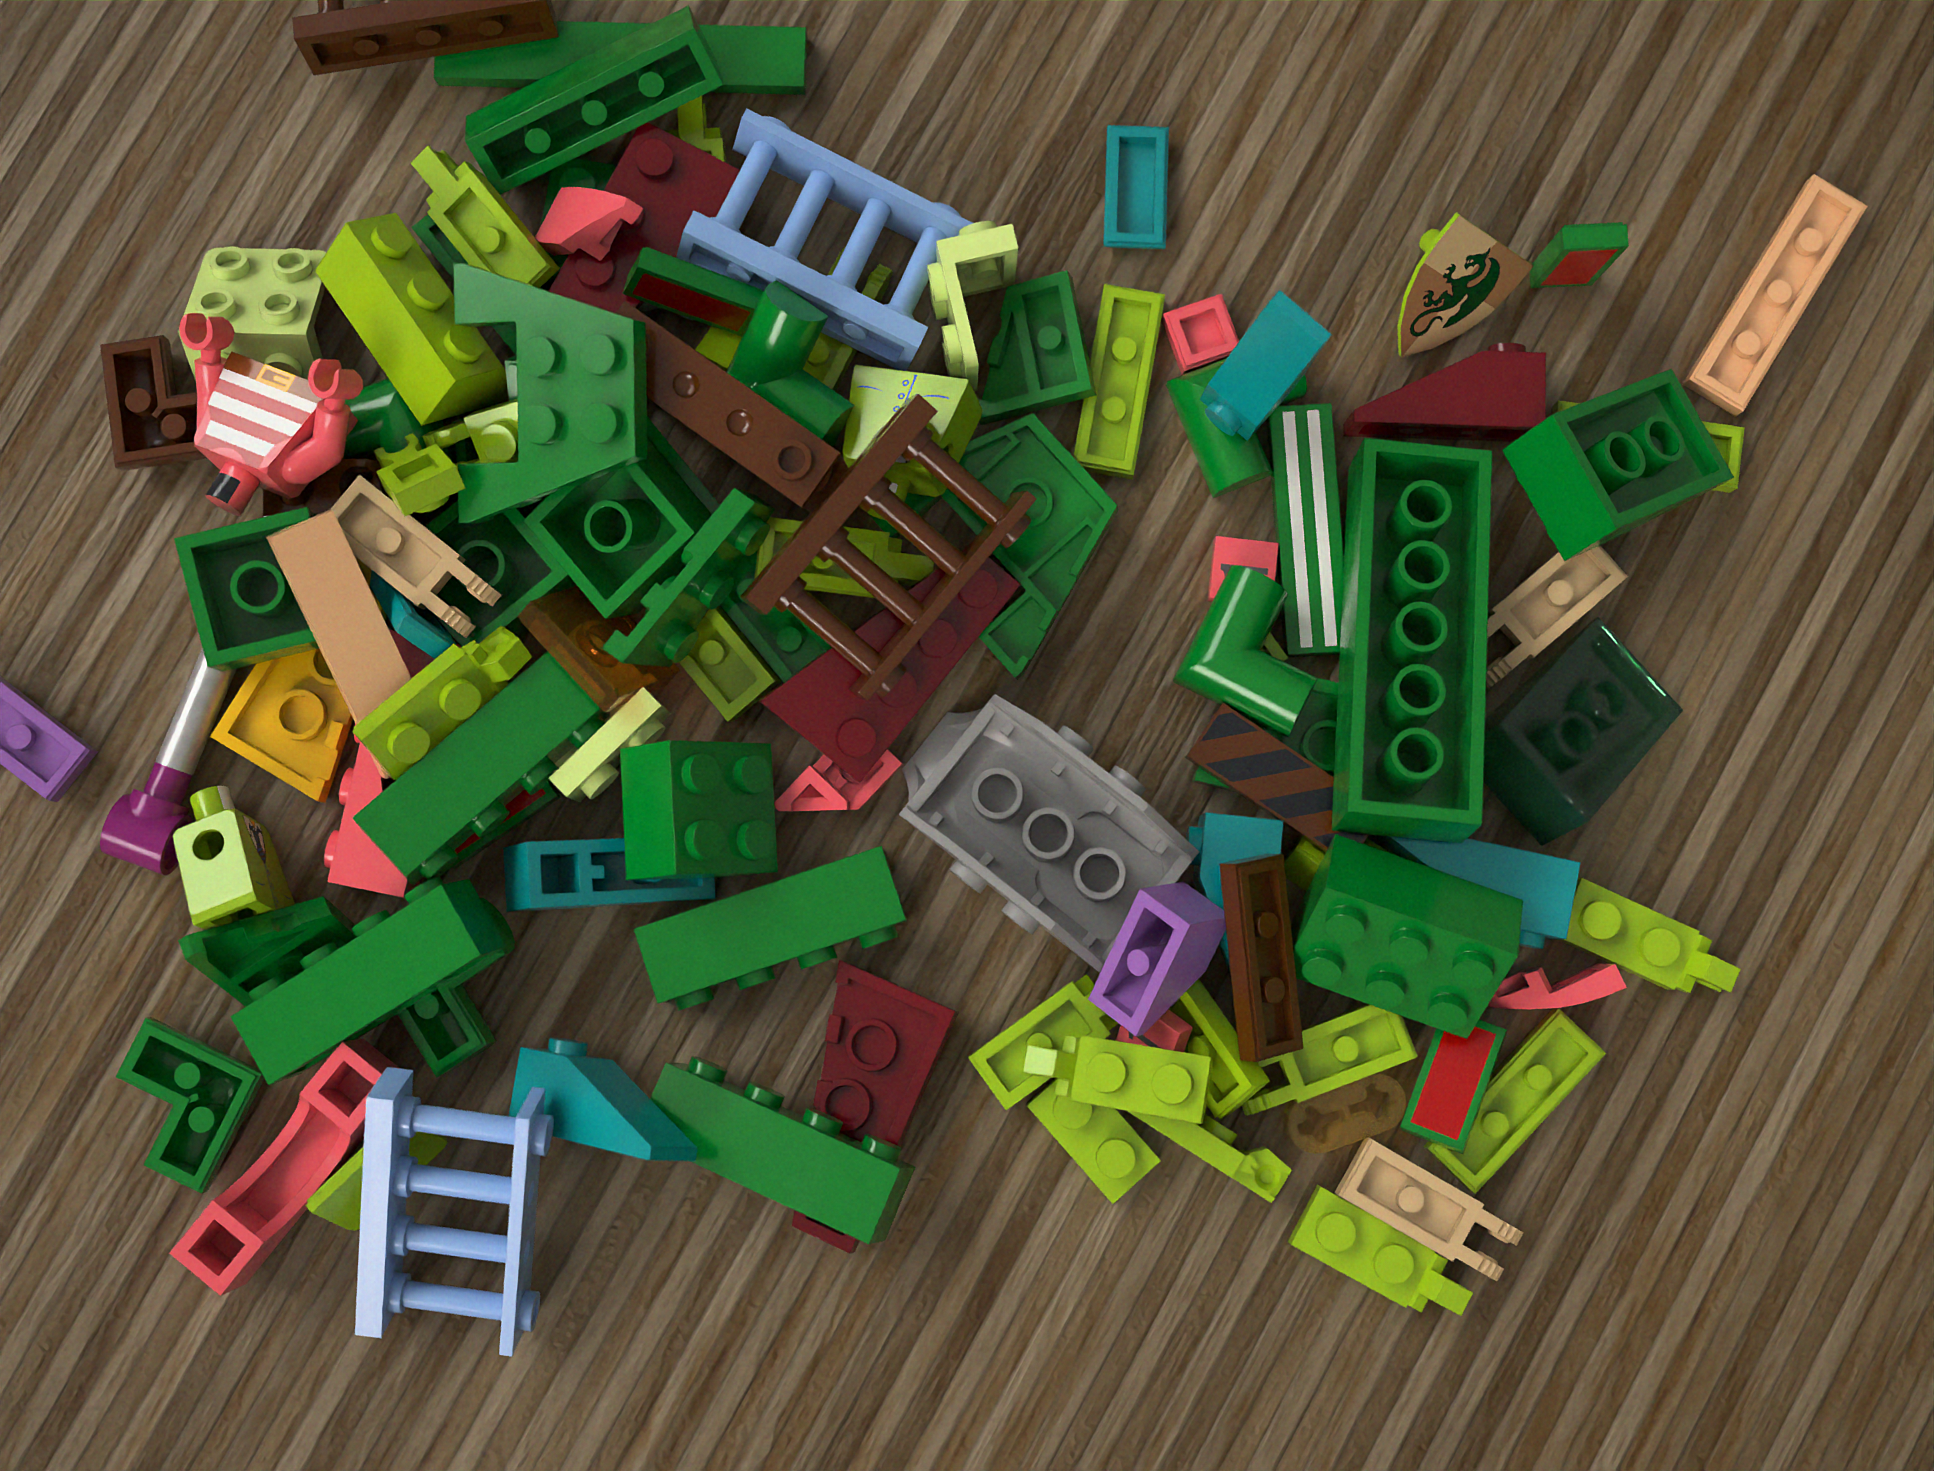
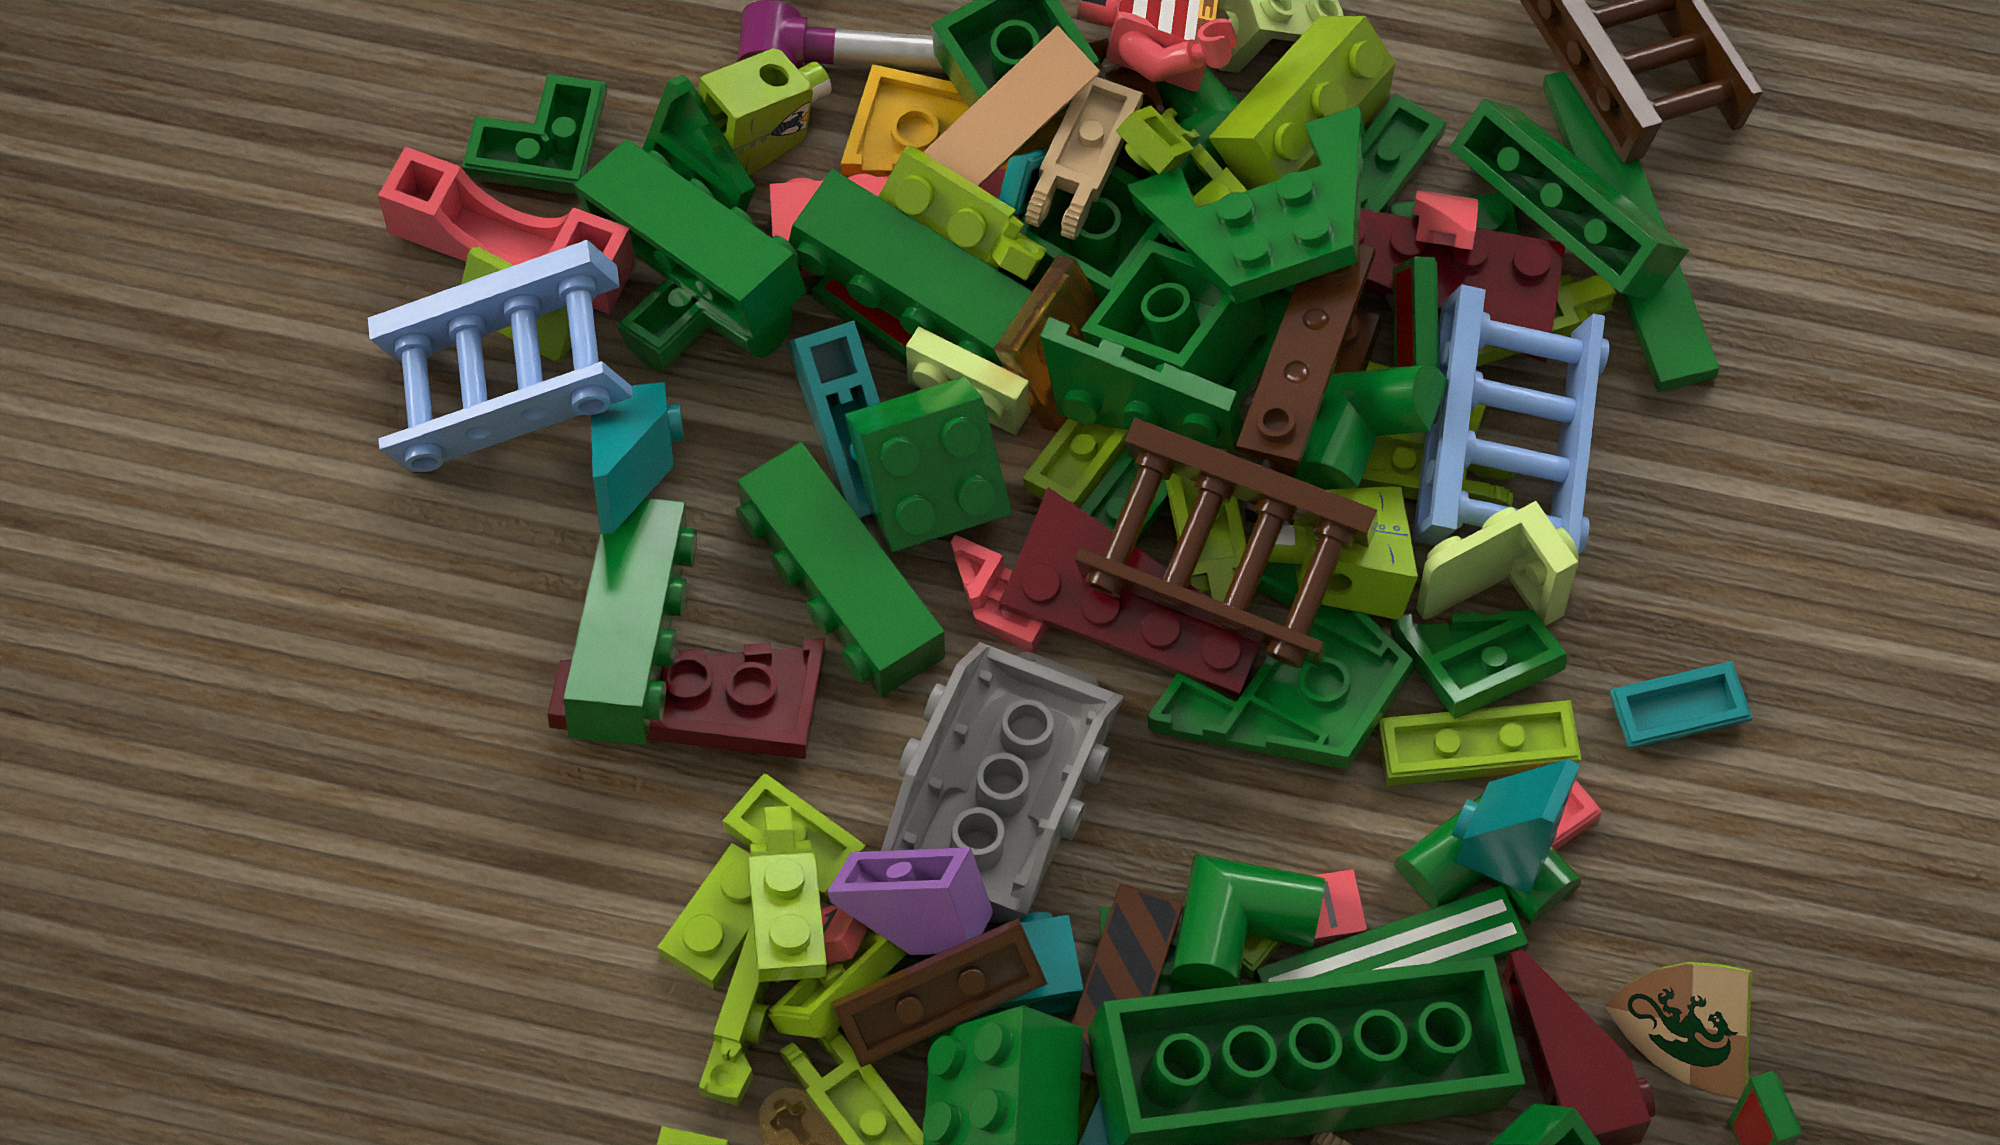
camera: 75 degrees right, 20 degrees down
(481, 221) = (1414, 141): lime hinge -> none

